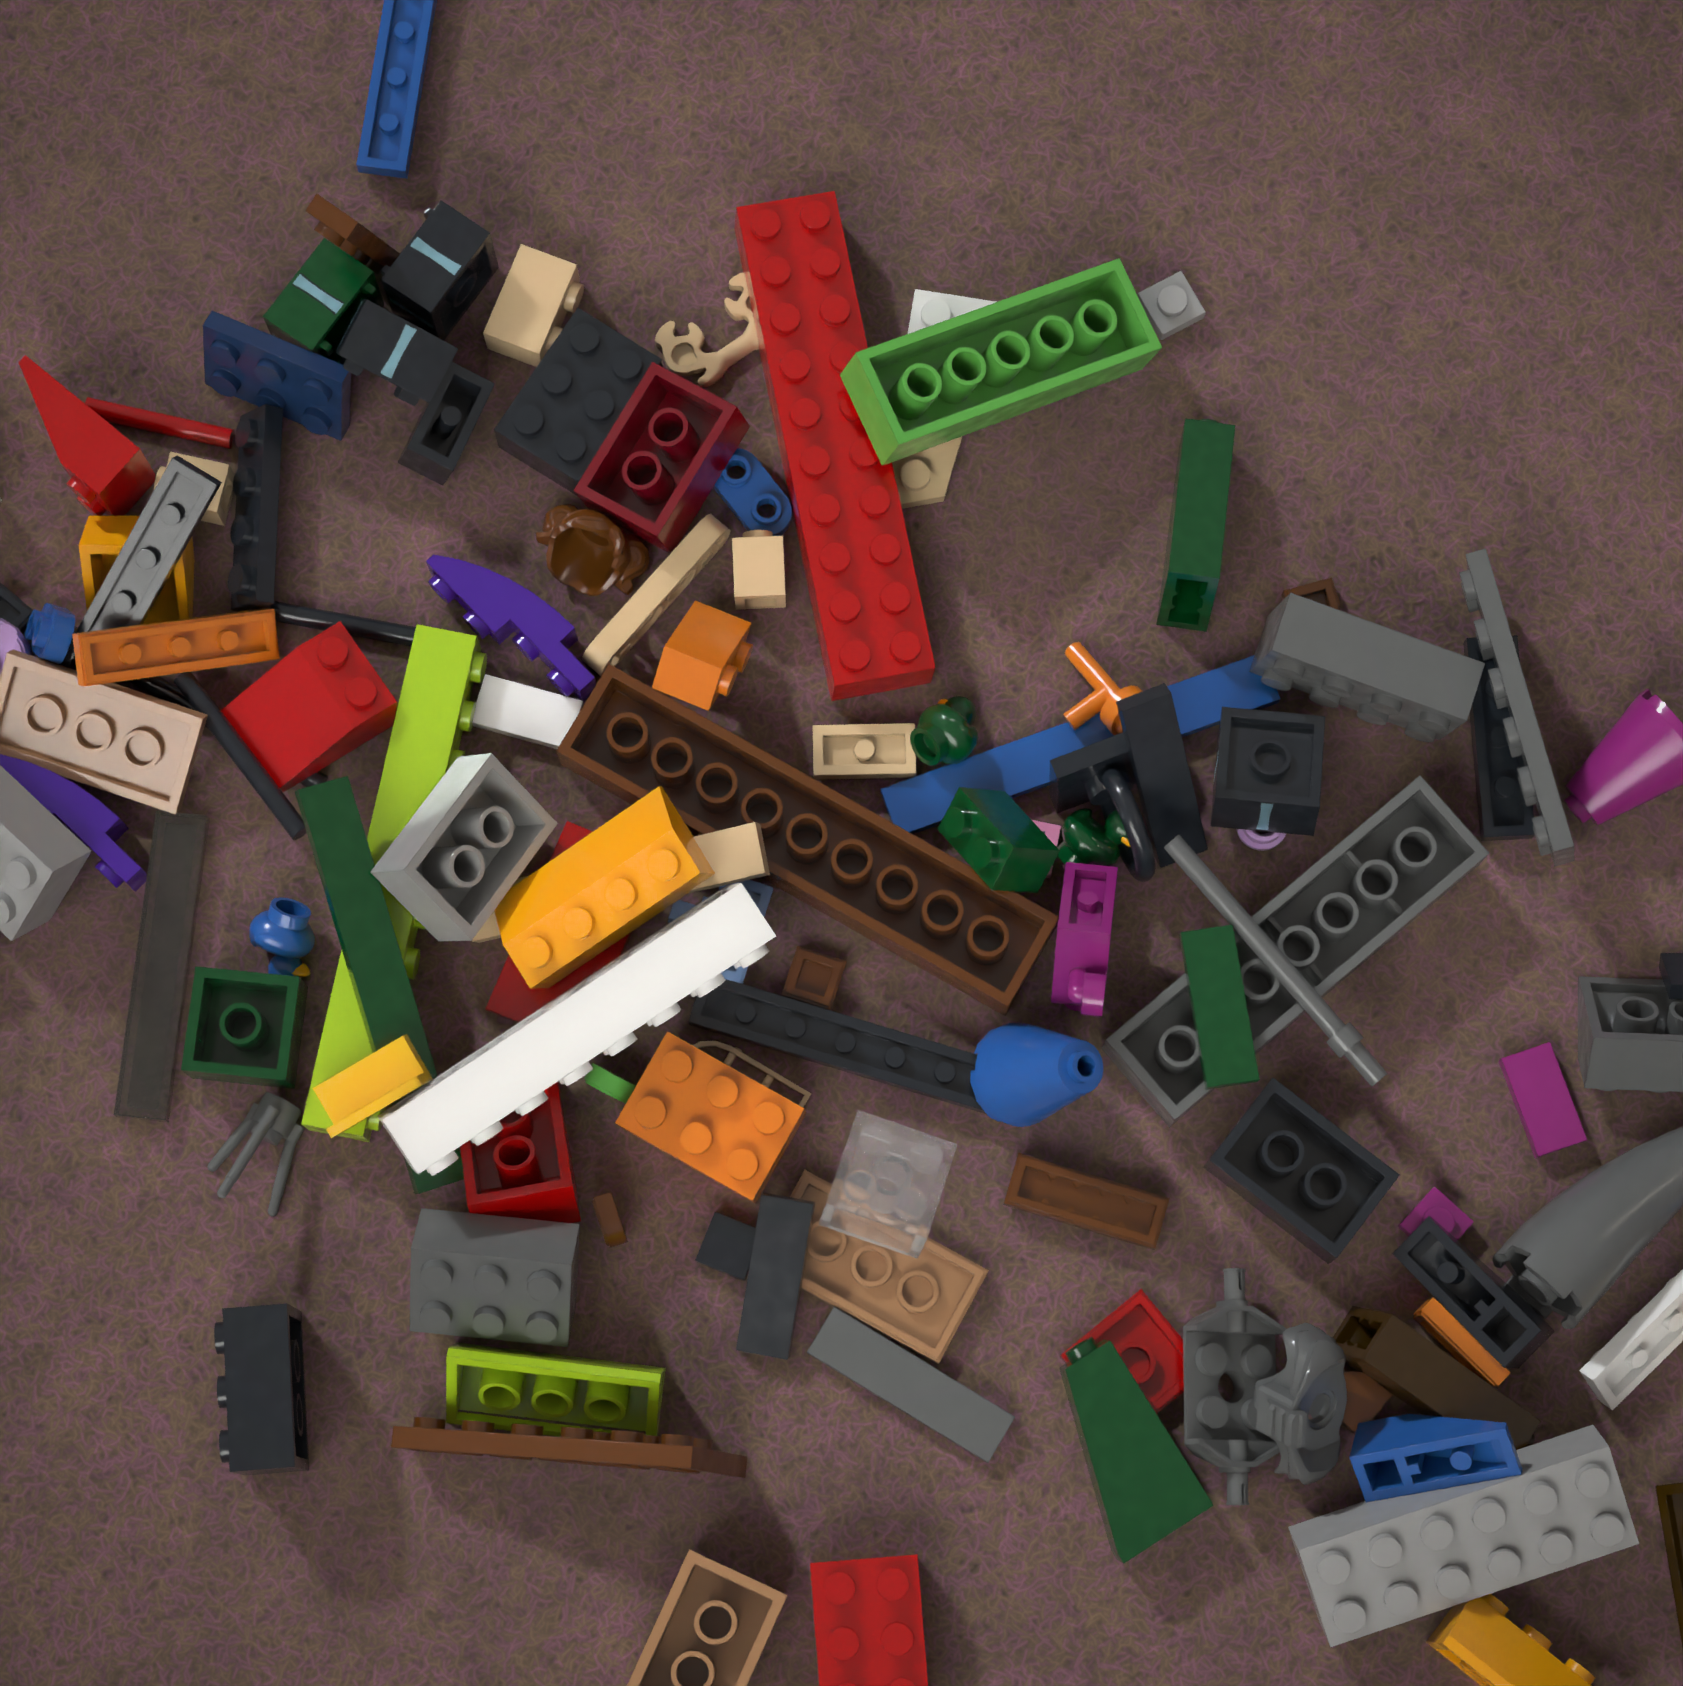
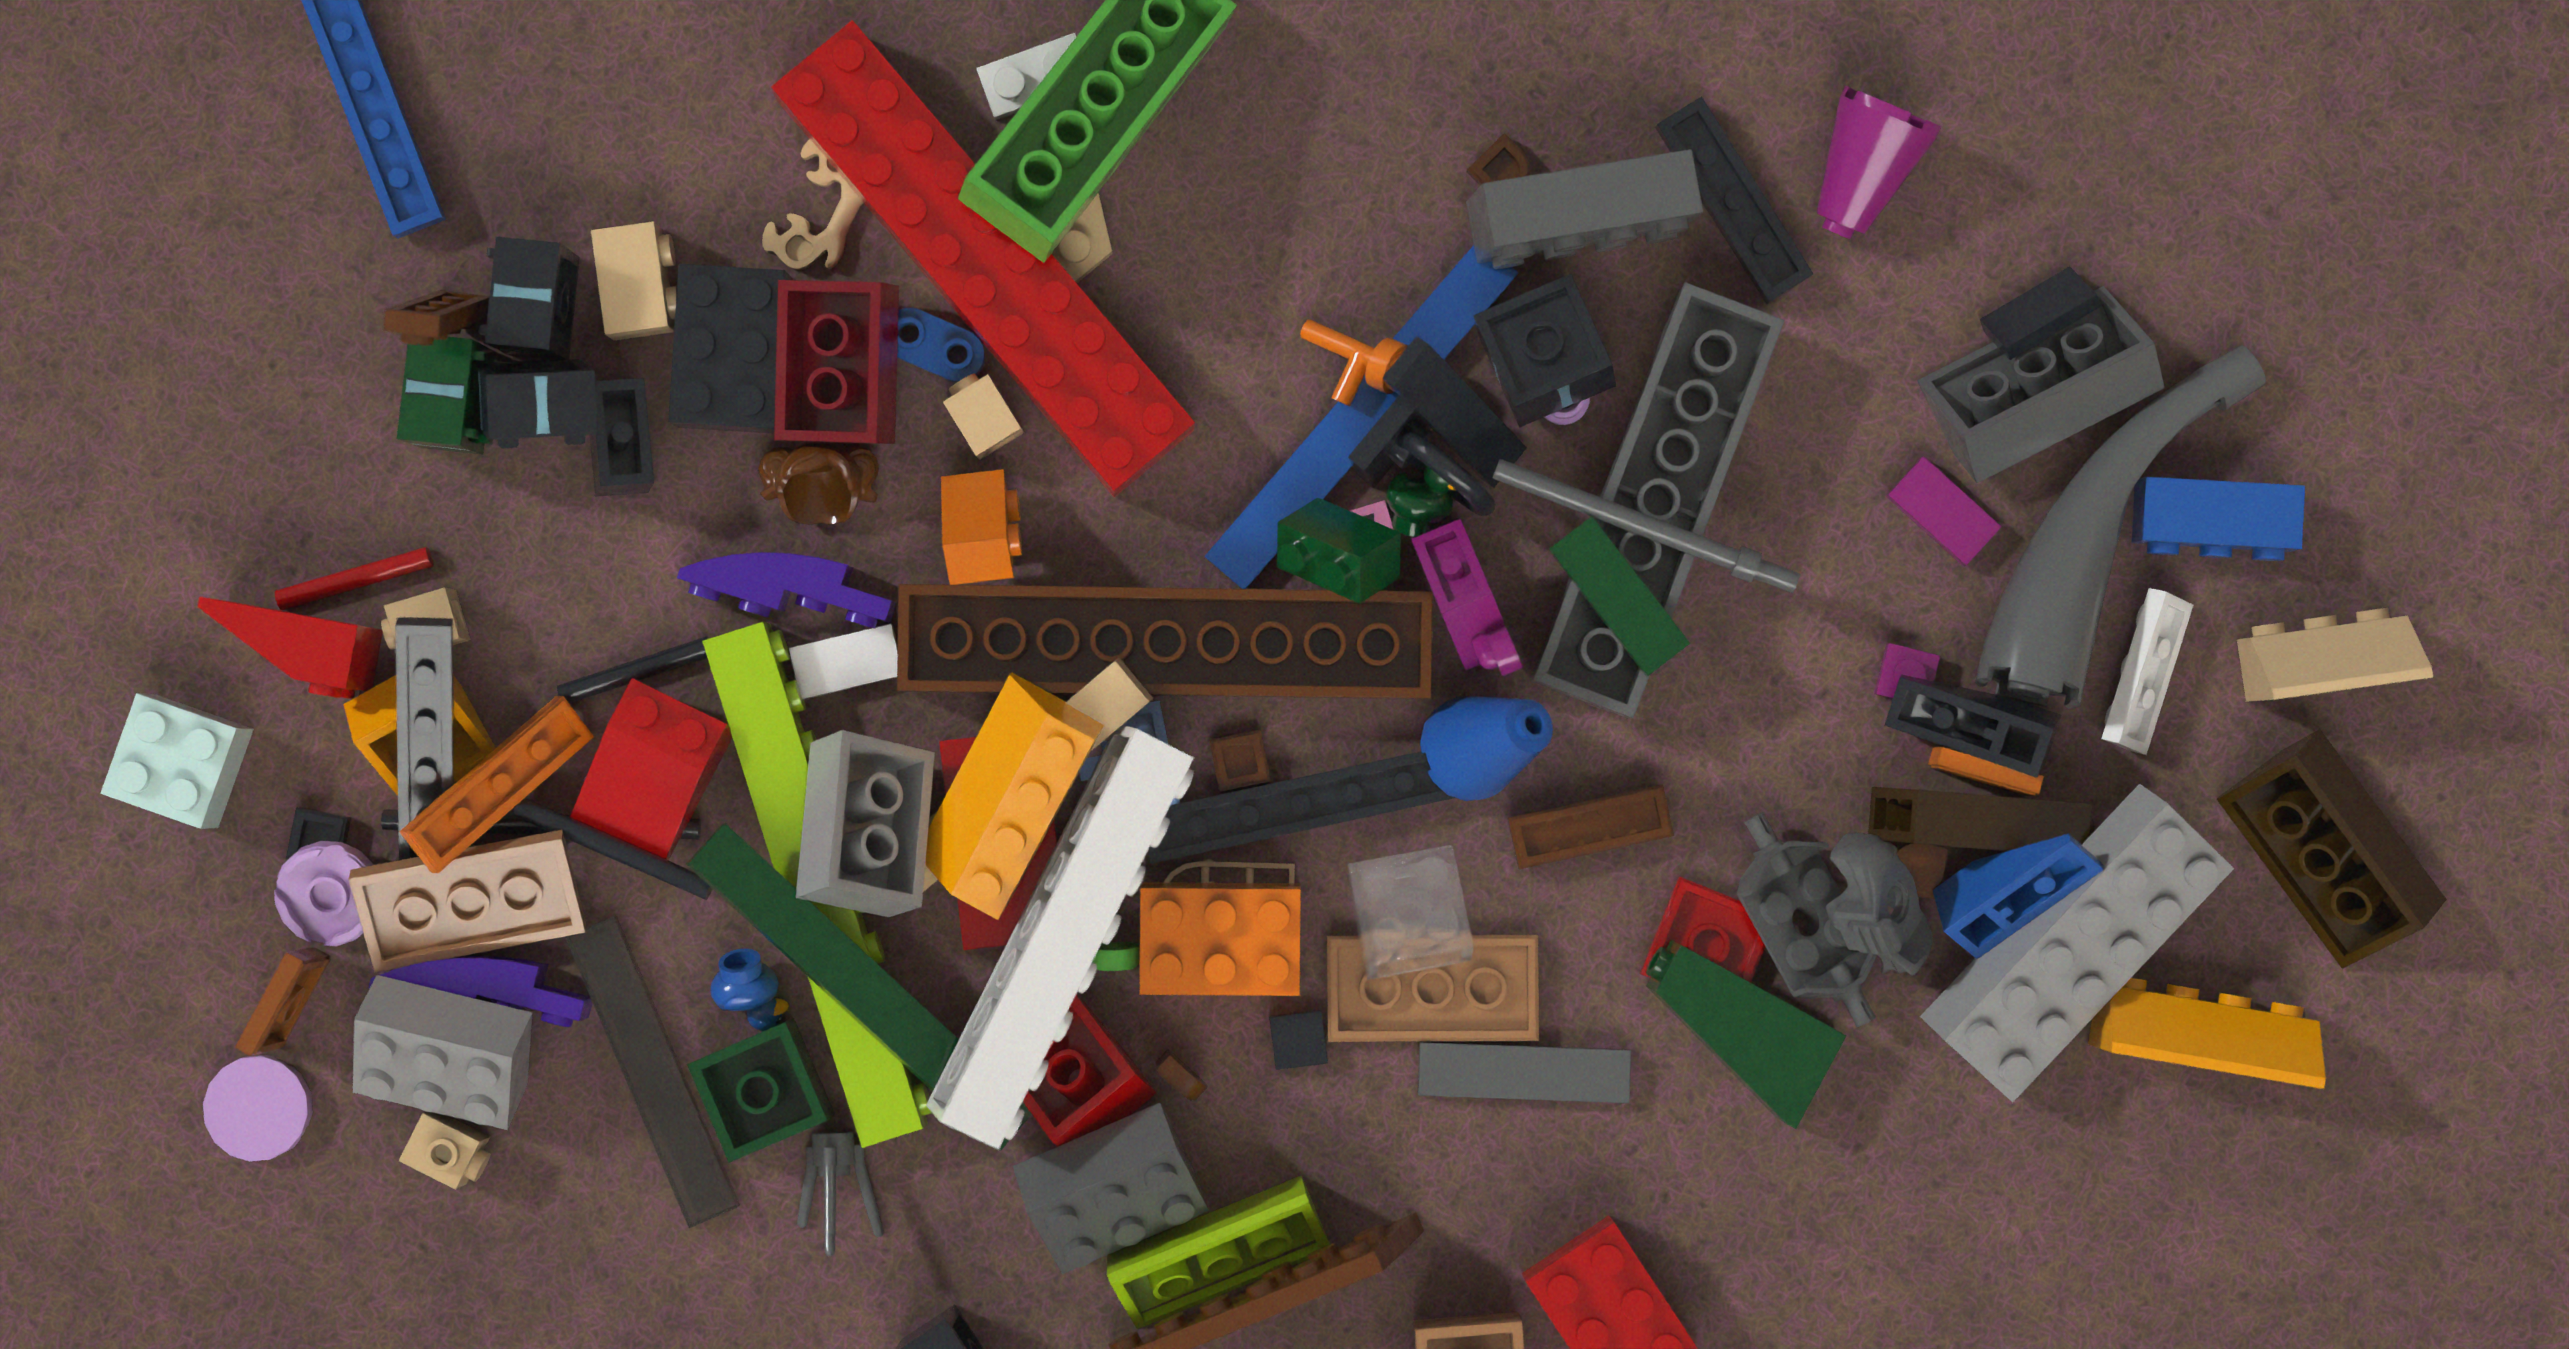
camera: 25 degrees left, 10 degrees up
(50, 632) = (374, 831): blue plate -> none
(256, 513) = (492, 611): black plate -> none
(276, 373) = (438, 481): dark blue plate -> none
(372, 1084) = (908, 1084): yellow panel -> none
(656, 594) = (902, 489): tan beam -> none
(775, 1275) = (1354, 1045): black tile -> none
(863, 751) = (1170, 529): tan plate -> none
(945, 732) = (1234, 473): dark green animal -> none
(1196, 525) = (1356, 151): dark green slope -> none
(1301, 1171) = (1766, 697): black brick -> none
(1511, 692) = (1724, 157): dark grey plate -> none

